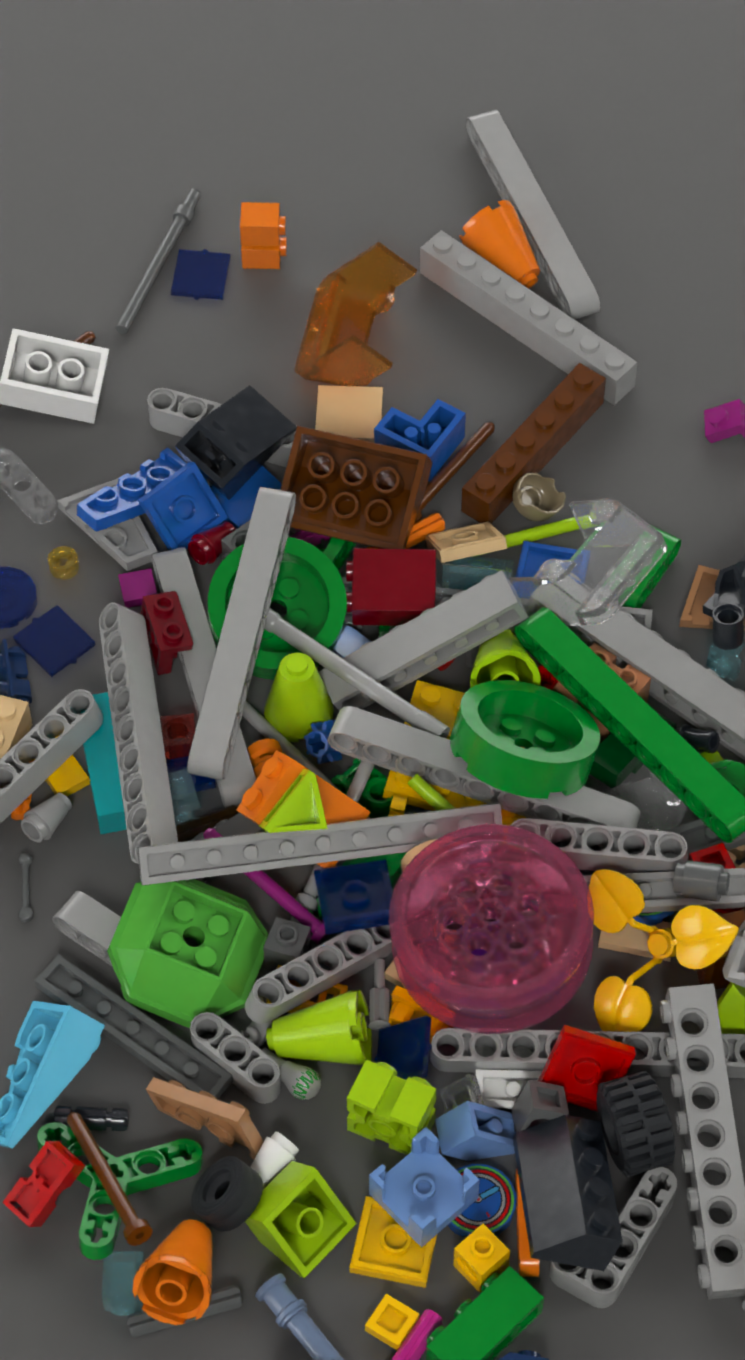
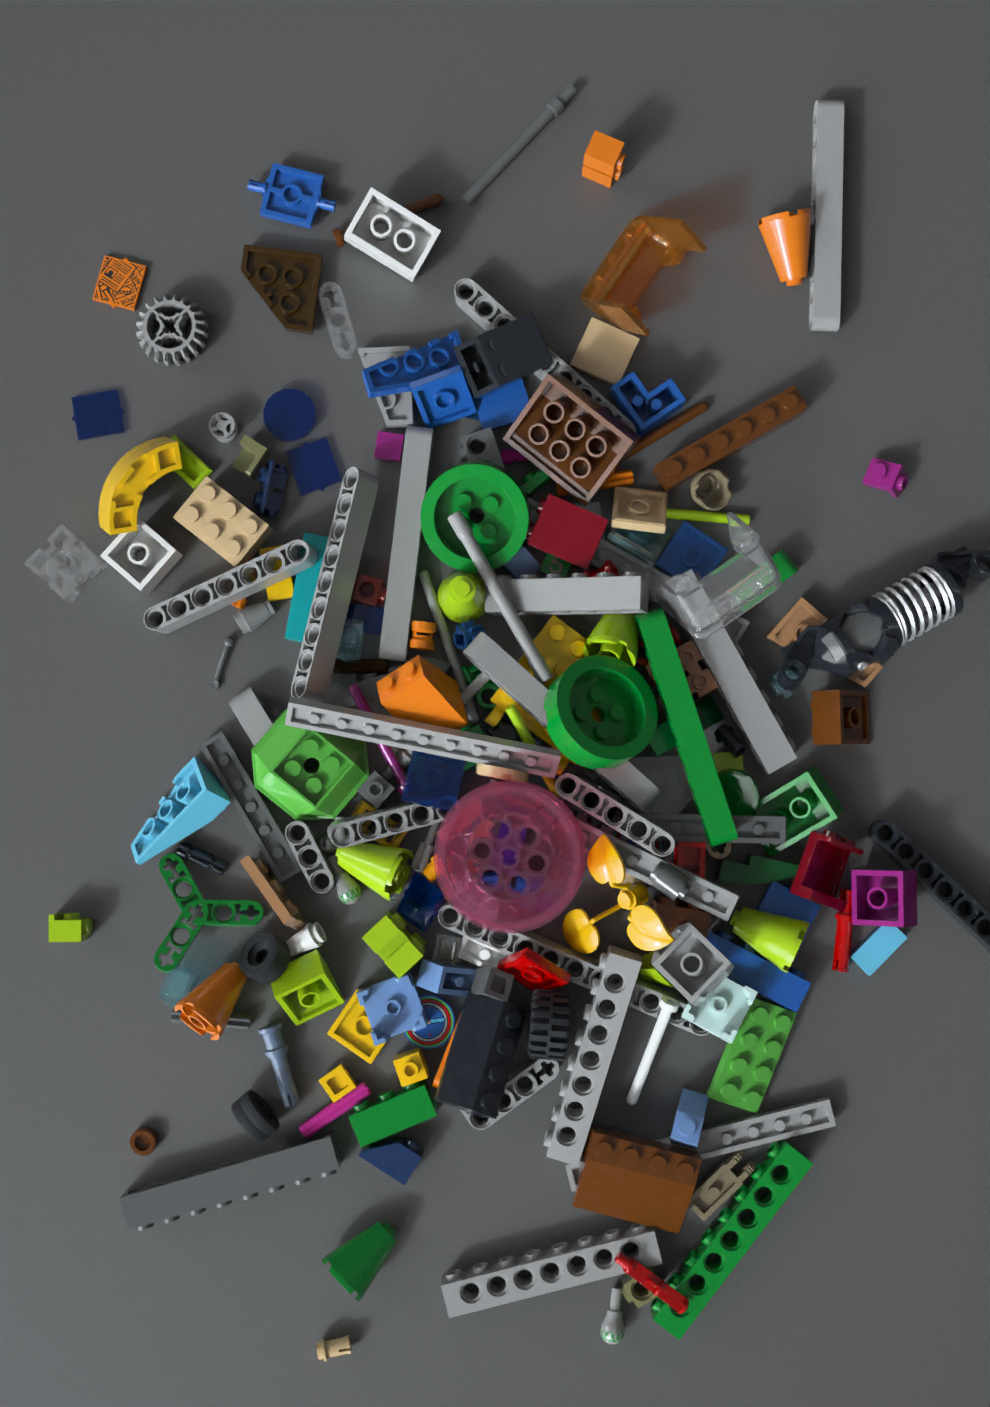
camera: 30 degrees right, 30 degrees up
(40, 1190) = (150, 900): red piece -> none
(71, 566) = (347, 409): clear yellow bush -> none
(136, 1230) = (189, 919): reddish brown bar -> none
(165, 629) = (392, 496): dark red bracket -> none
(200, 274) = (546, 170): clear blue piece -> none
(207, 545) = (452, 430): dark red cone -> none
(241, 634) = (437, 537): light grey beam -> none
(298, 807) = (409, 716): lime slope -> none
(524, 314) = (776, 315): light grey brick -> none

